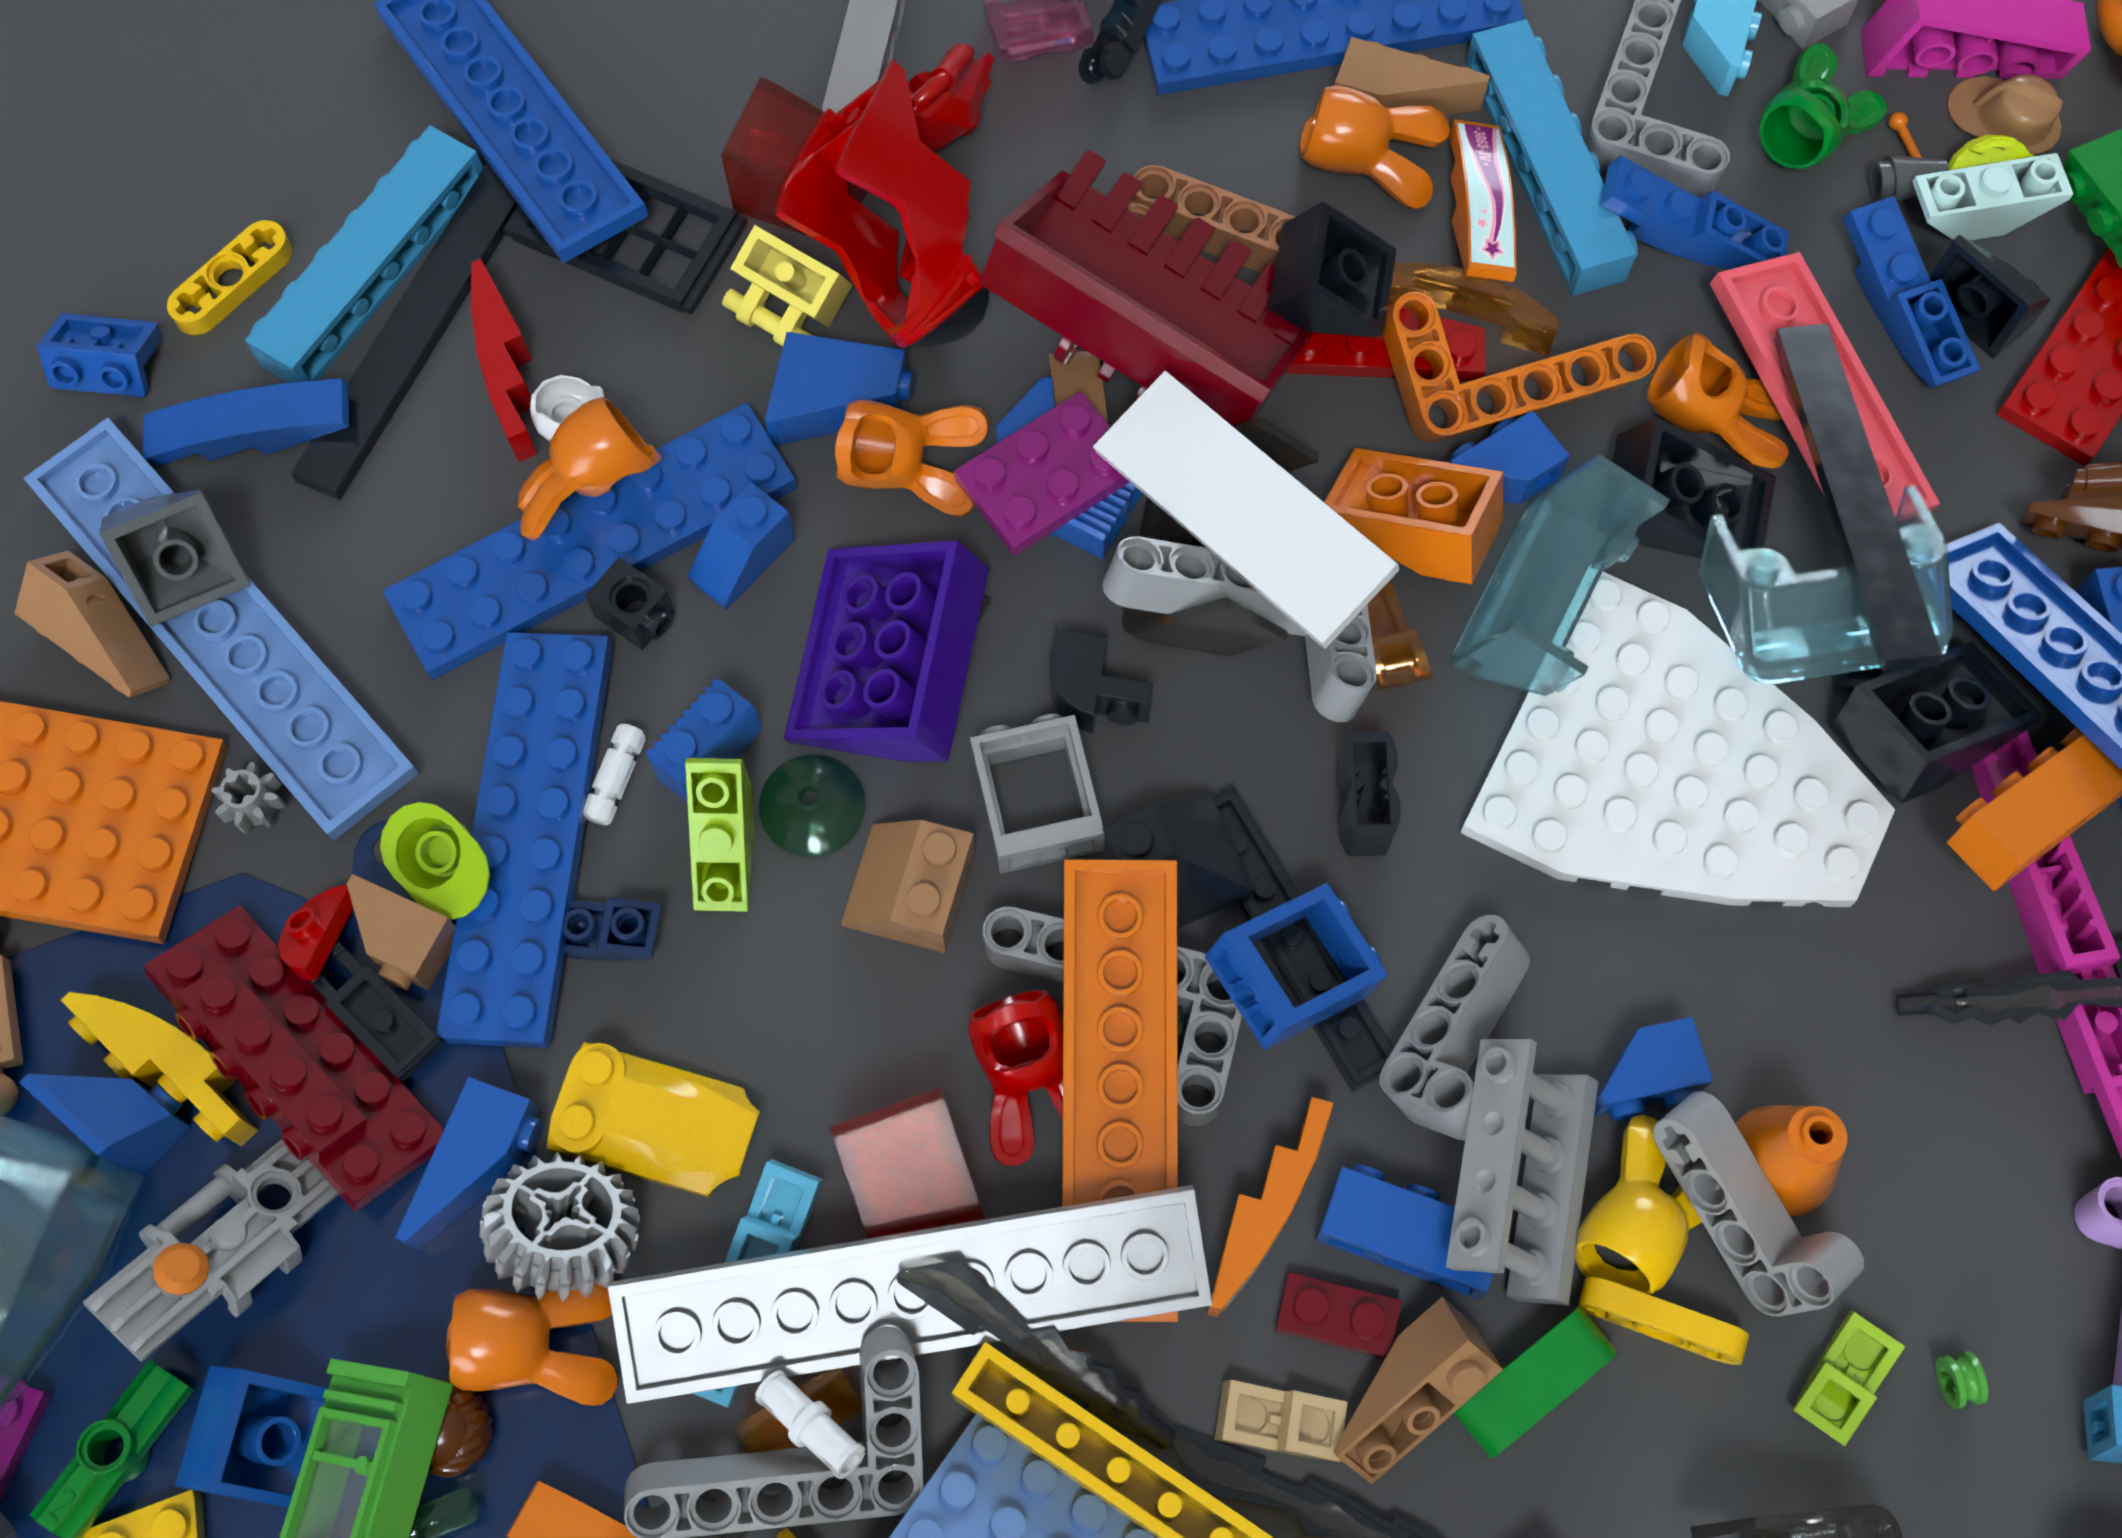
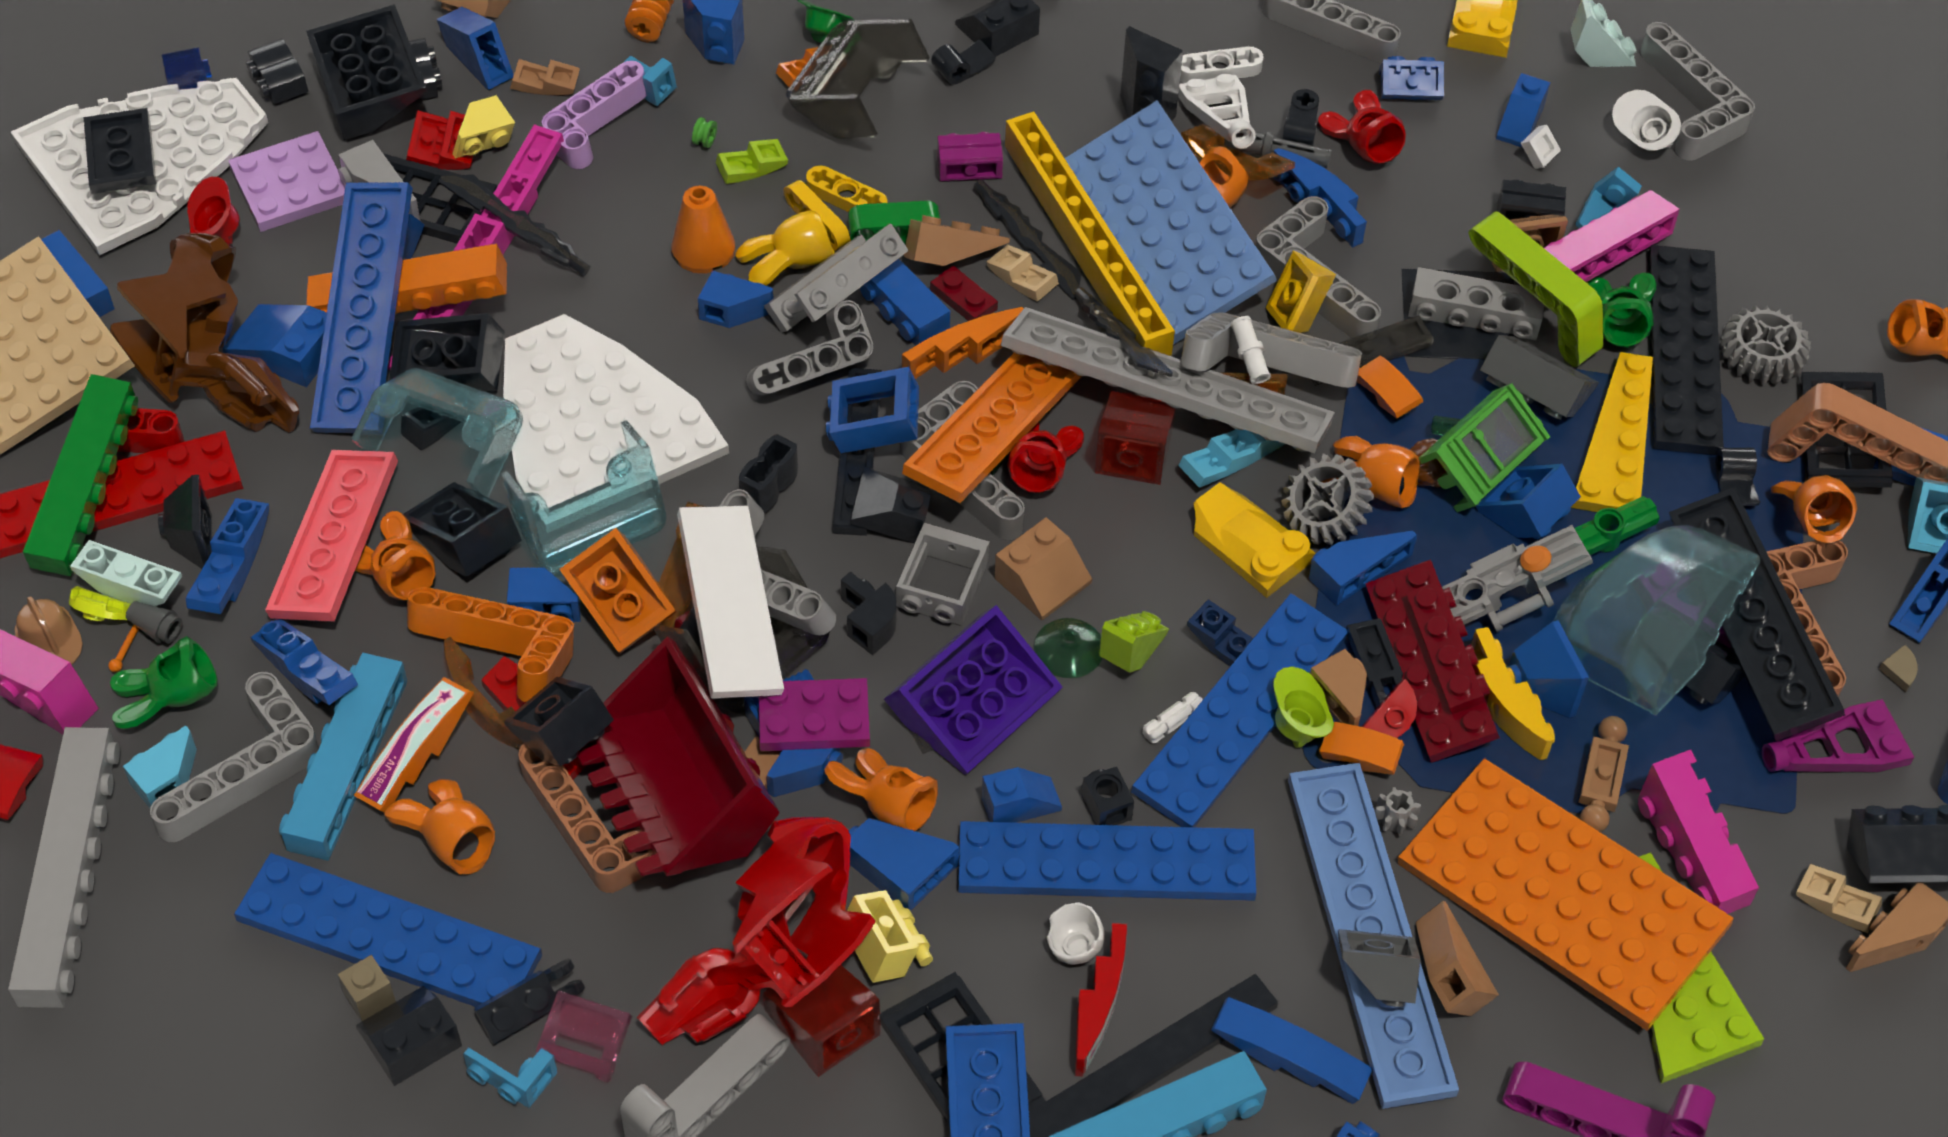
camera: 150 degrees left, 15 degrees down
(328, 859) = (1361, 745): none -> orange slope
(586, 456) = (1087, 869): orange piece -> none
(714, 728) = (1111, 696): blue brick -> none
(1410, 79) = (398, 854): medium nougat slope -> none
(1698, 1390) = (837, 182): none -> yellow beam
(1746, 1217) = (746, 212): light grey beam -> none
(1857, 500) = (392, 442): black tile -> none

